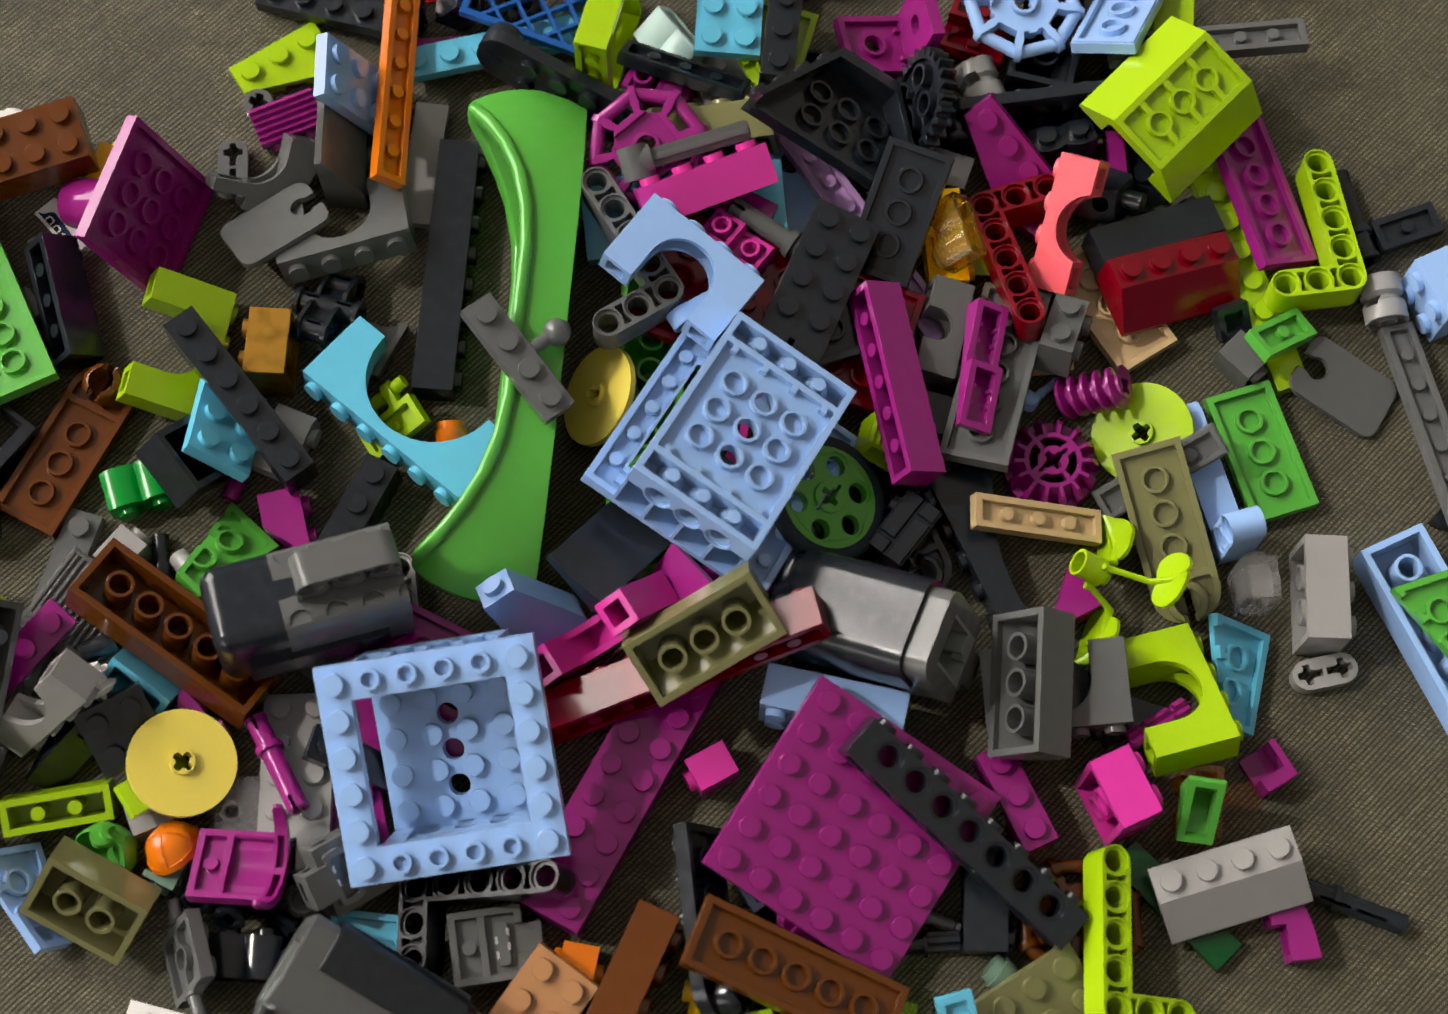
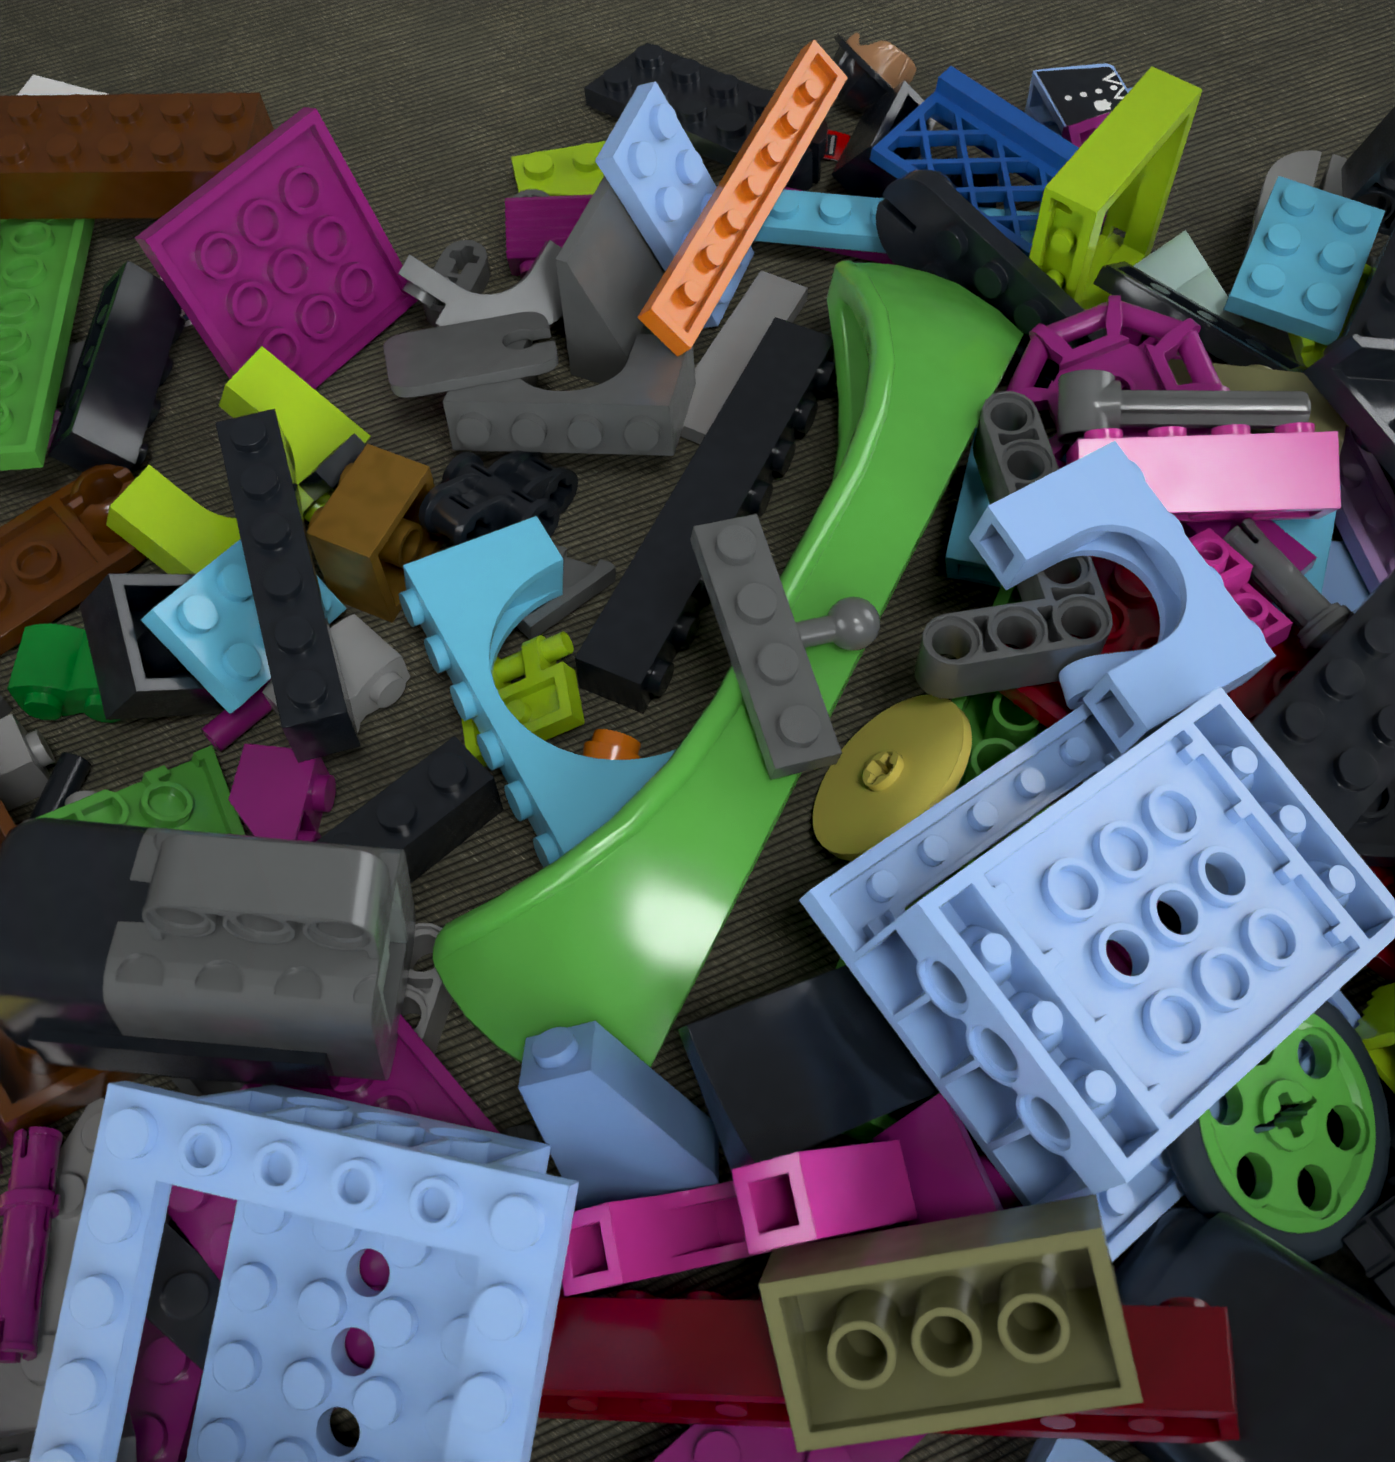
camera: 25 degrees right, 10 degrees down
(230, 322) = (328, 472): none -> black plate

